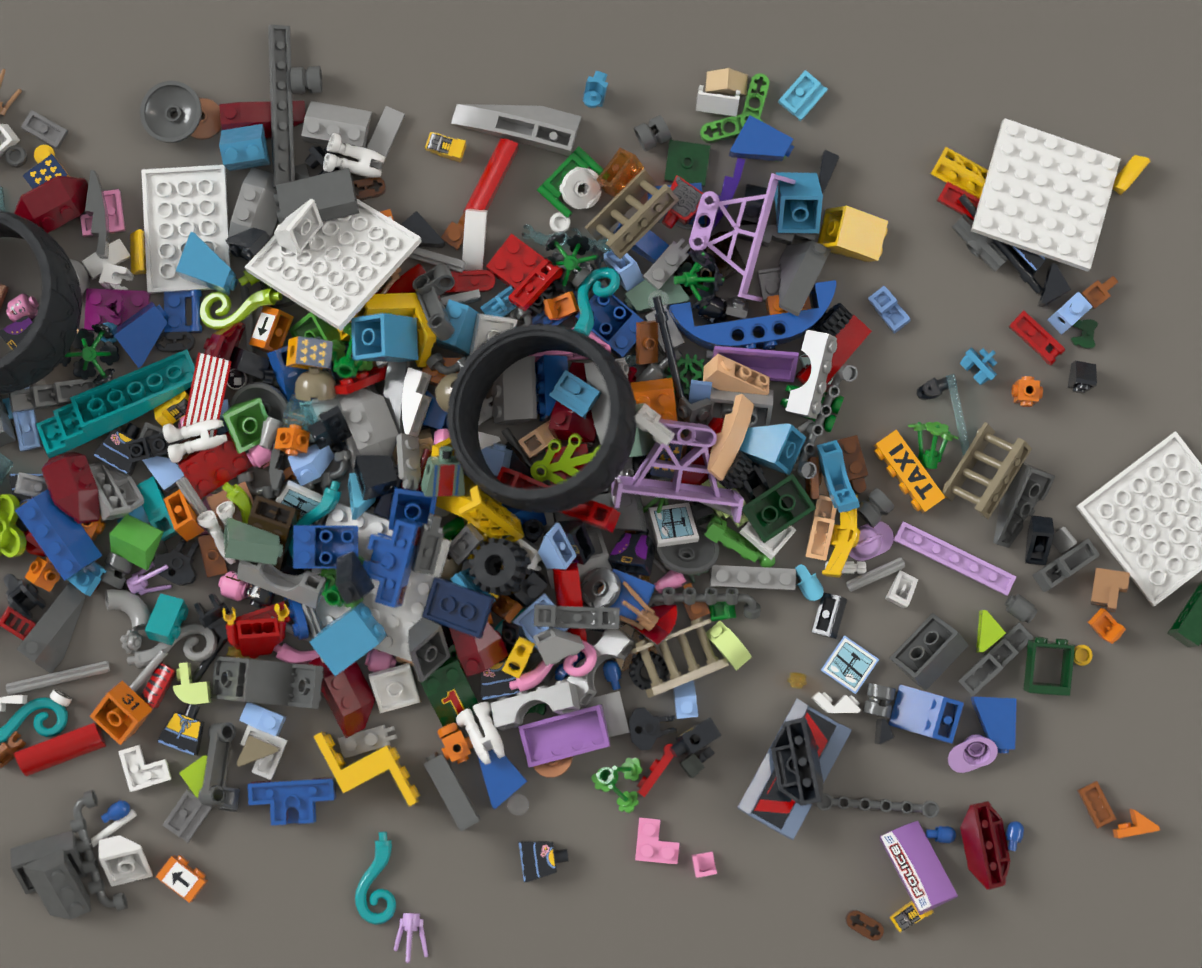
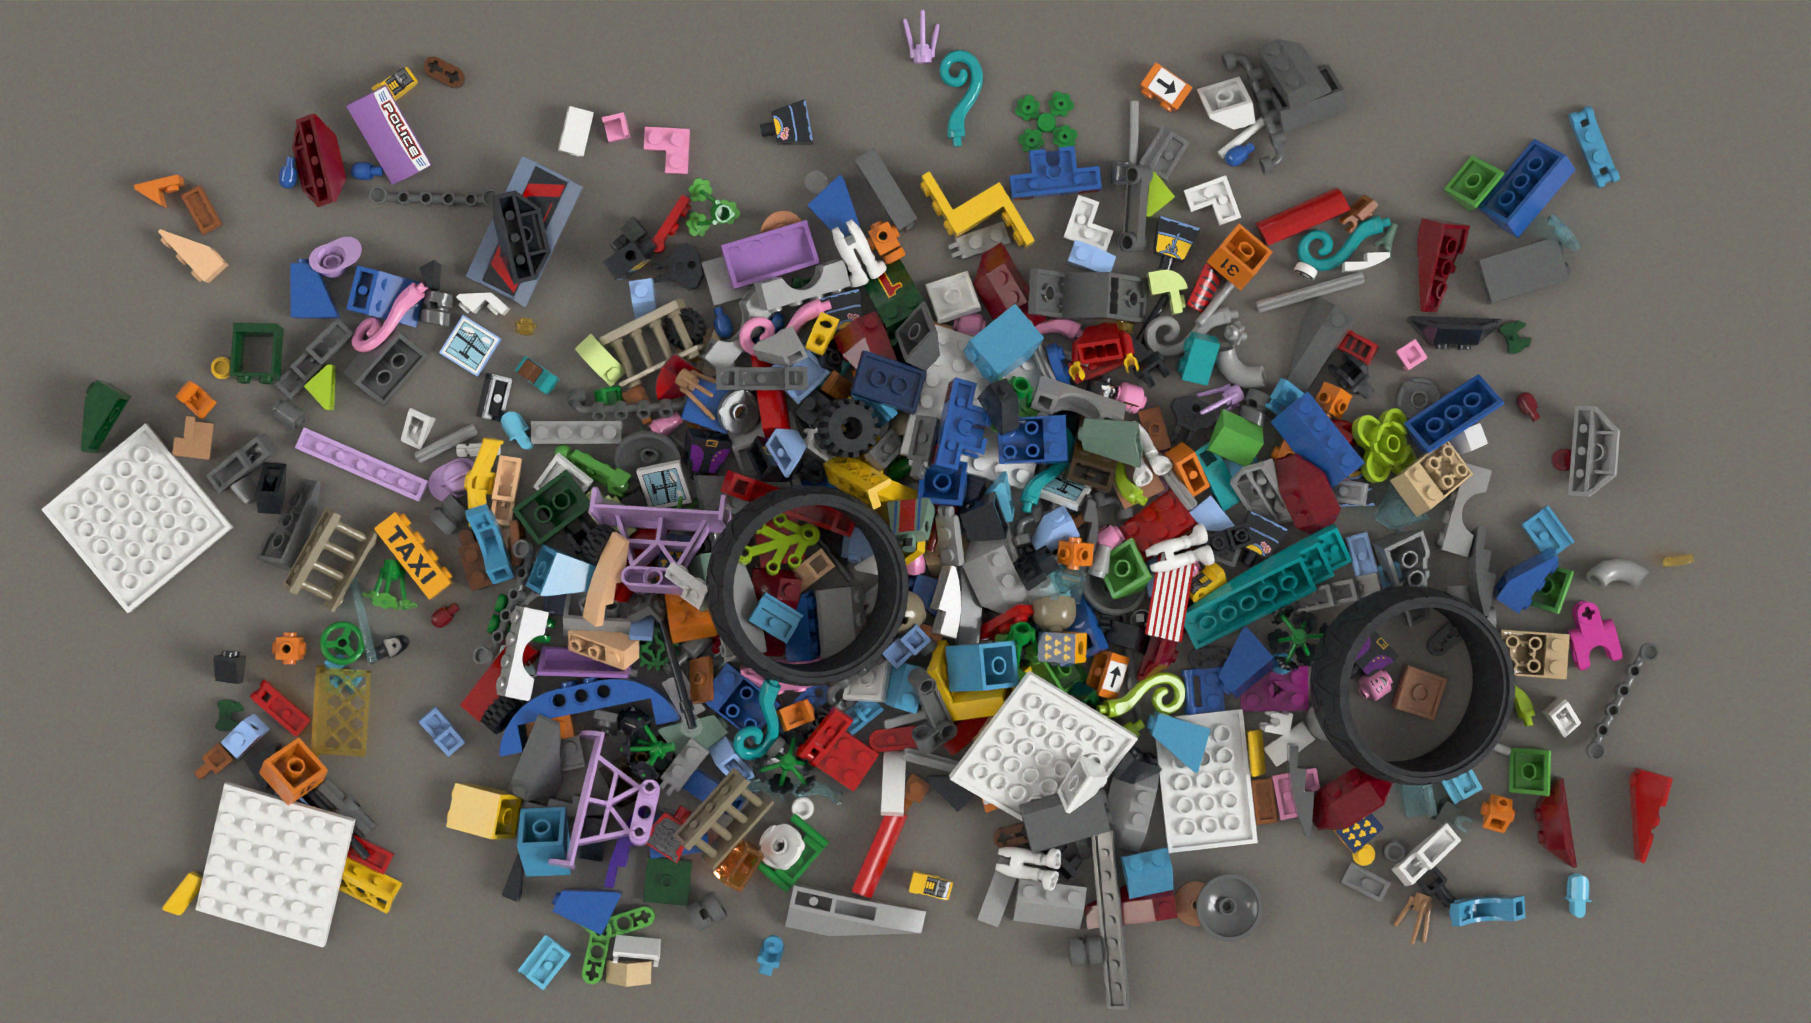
camera: 175 degrees left, 5 degrees up
(132, 207) = (1264, 801): none -> dark orange plate
(214, 842) = (1134, 131): none -> light grey bar
(255, 749) = (1094, 224): dark tan slope -> none
(293, 310) = (1085, 694): none -> dark green panel
(297, 851) = (1046, 122): none -> green plant
(452, 363) = (906, 645): none -> medium blue slope
(742, 862) = (575, 131): none -> white hinge
(780, 417) = (554, 604): none -> dark blue tile
(788, 634) = (537, 375): none -> leg
(883, 415) = (444, 615): none -> dark red cylinder
(936, 679) = (373, 325): none -> bright pink plant
(985, 392) = (352, 656): none -> green piece
(999, 327) = (321, 705): none -> clear yellow fence
(1026, 277) = (293, 771): none -> orange brick
(1099, 759) = (201, 258): none -> light nougat slope

